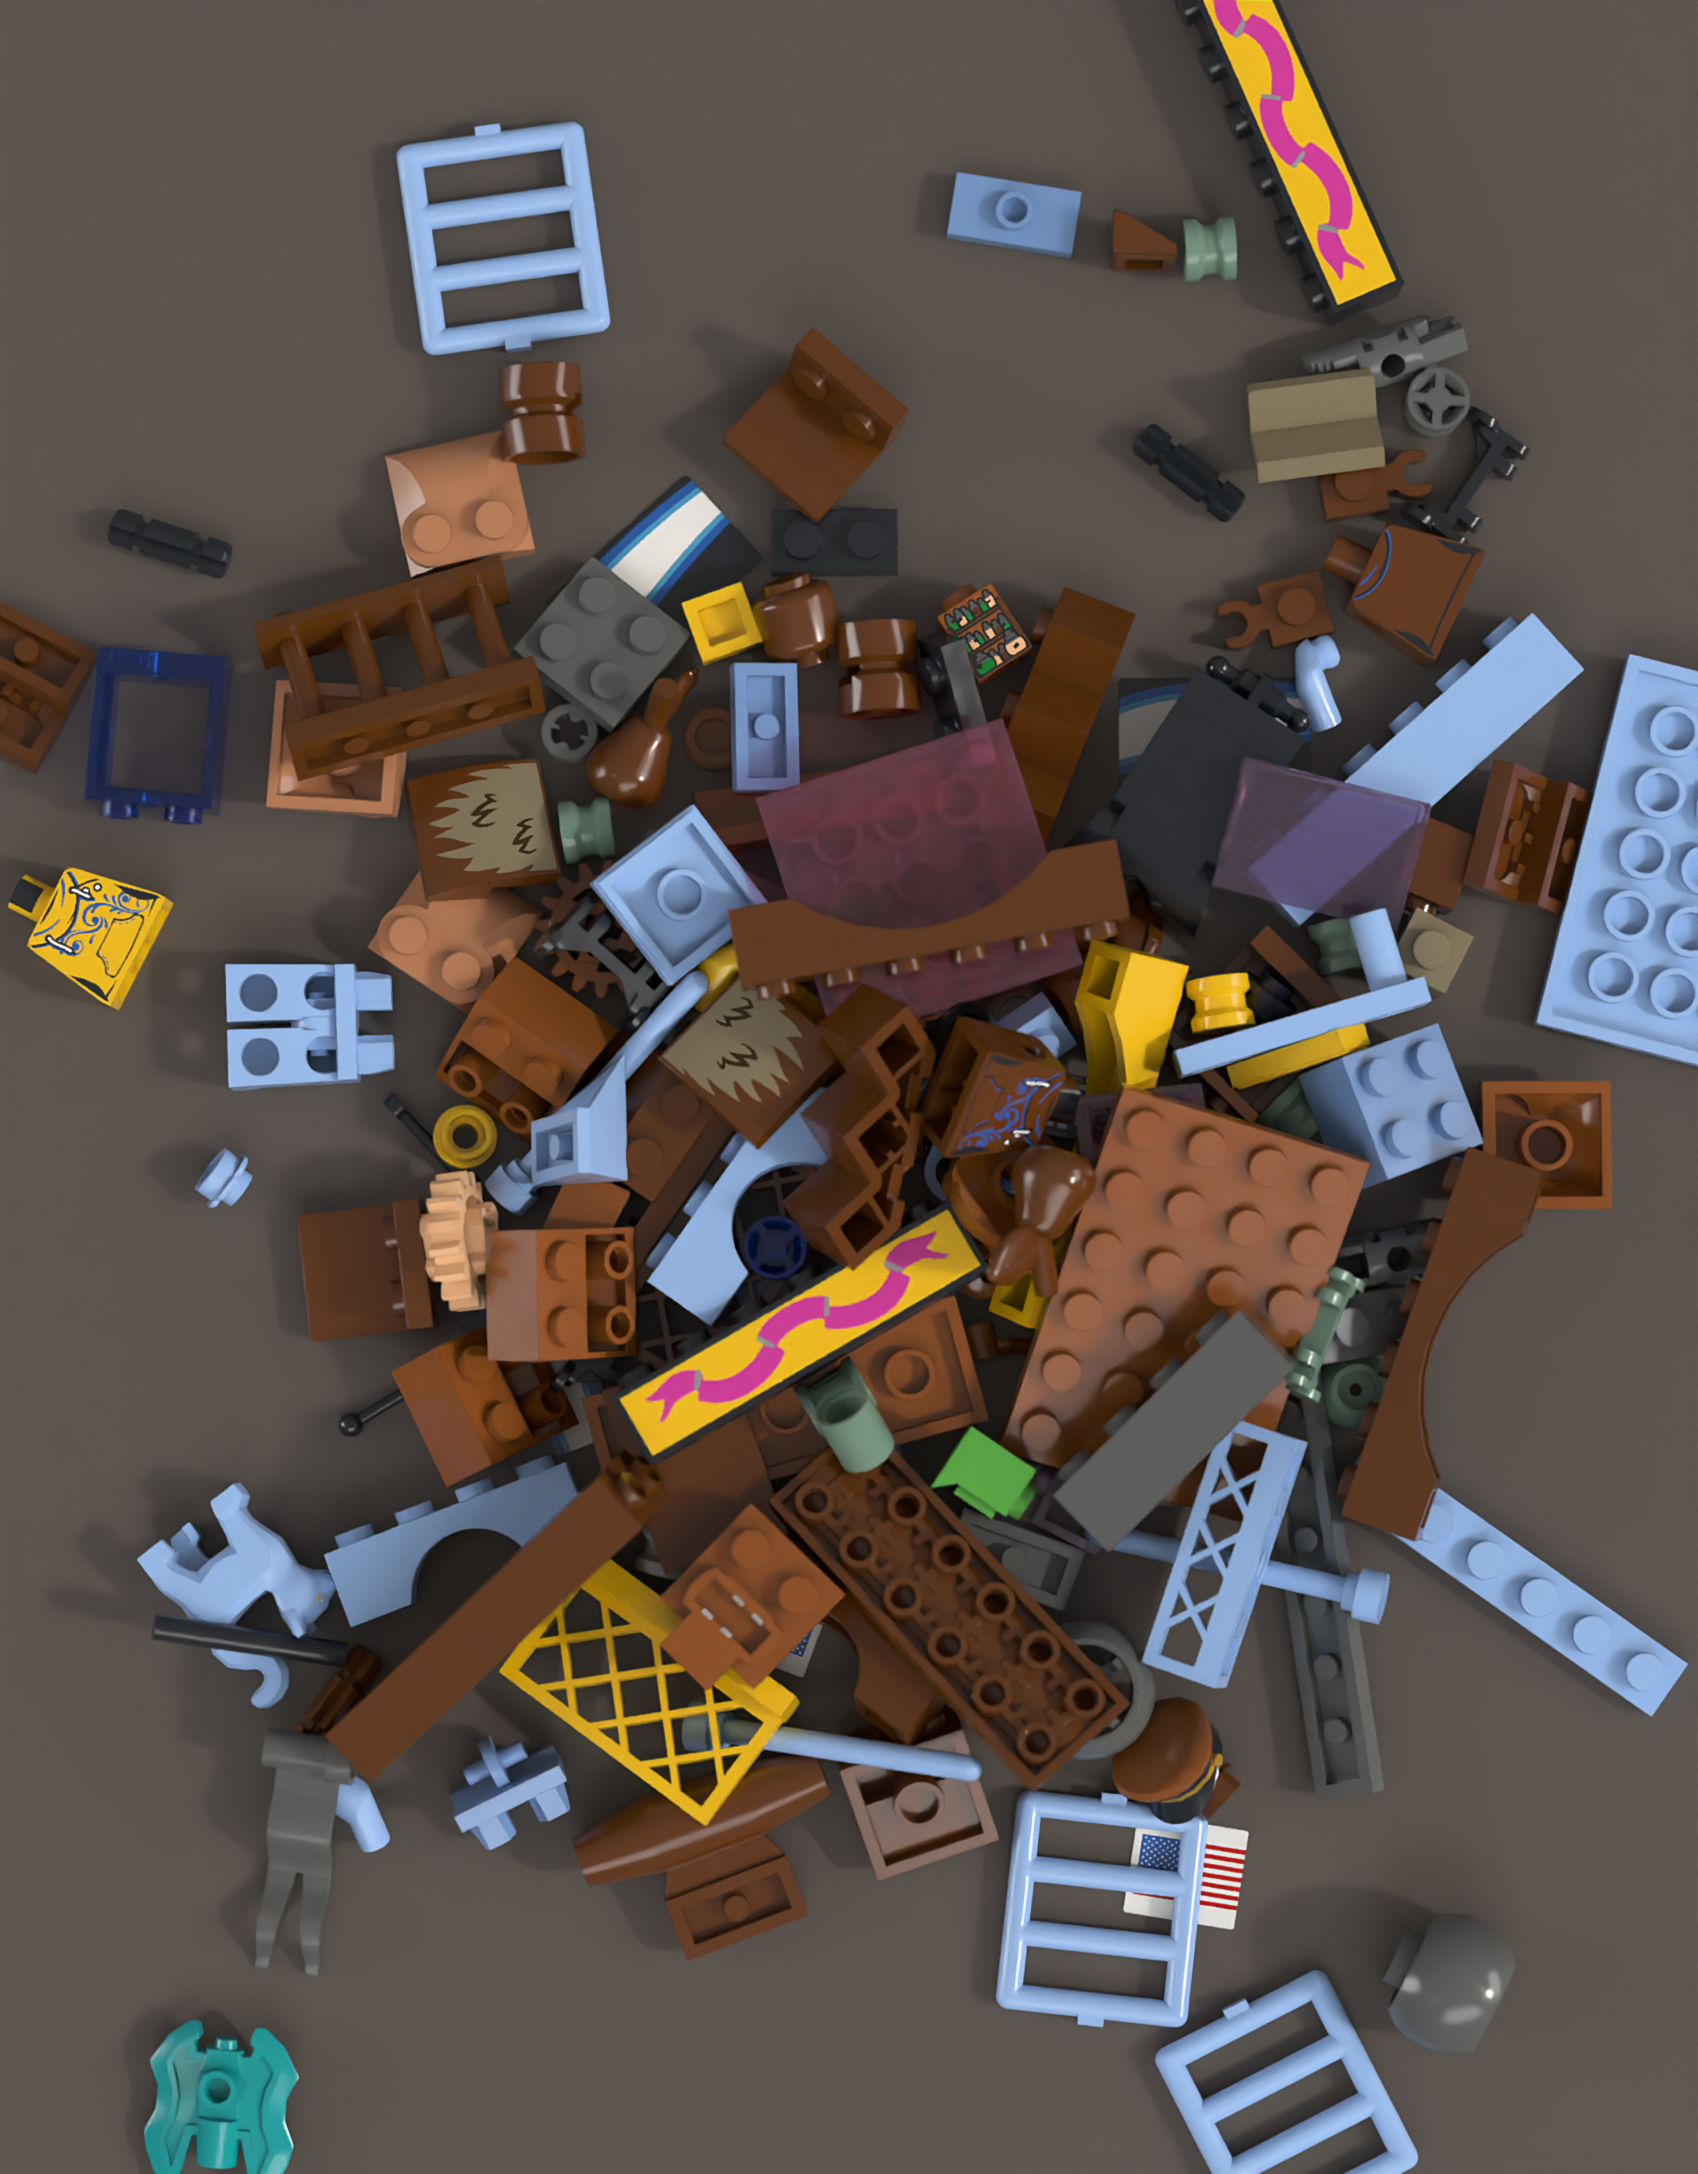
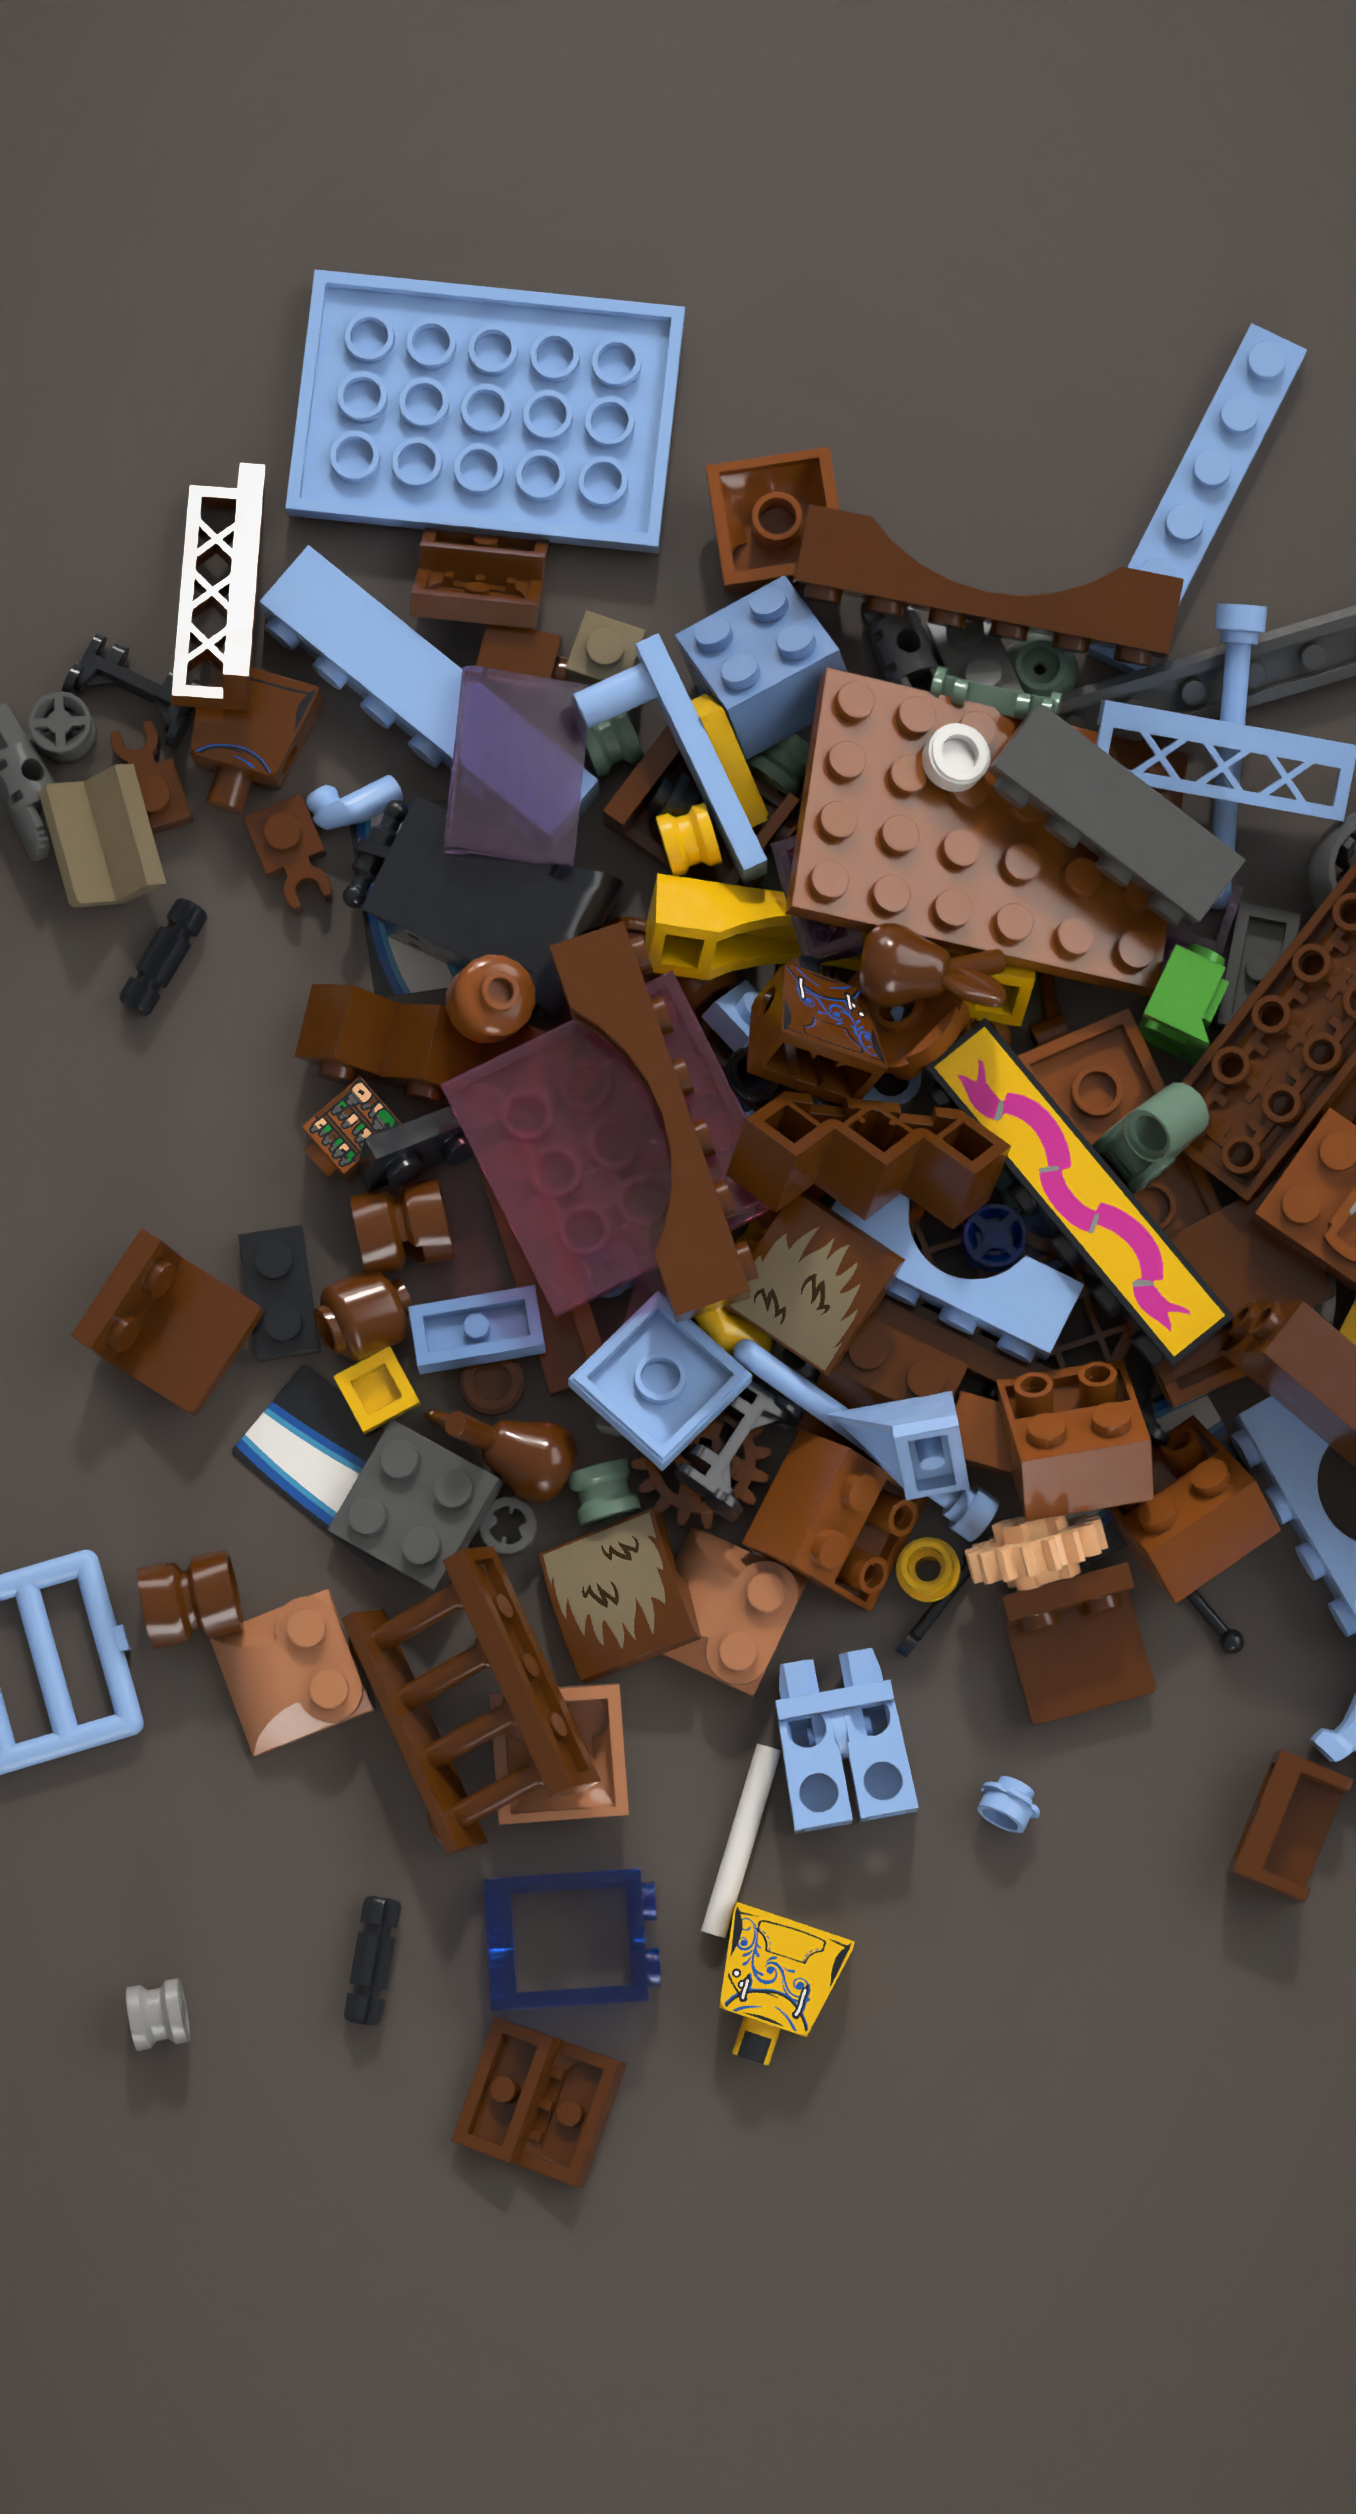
camera: 95 degrees left, 5 degrees down
(149, 330) = (158, 2014): none -> light grey wheel
(159, 1448) = (1288, 1825): none -> reddish brown panel
(230, 915) = (741, 1840): none -> white bar
(1084, 781) = (490, 999): none -> dark orange head
(1257, 1278) = (955, 757): none -> white tile
(1547, 596) = (240, 585): none -> fence

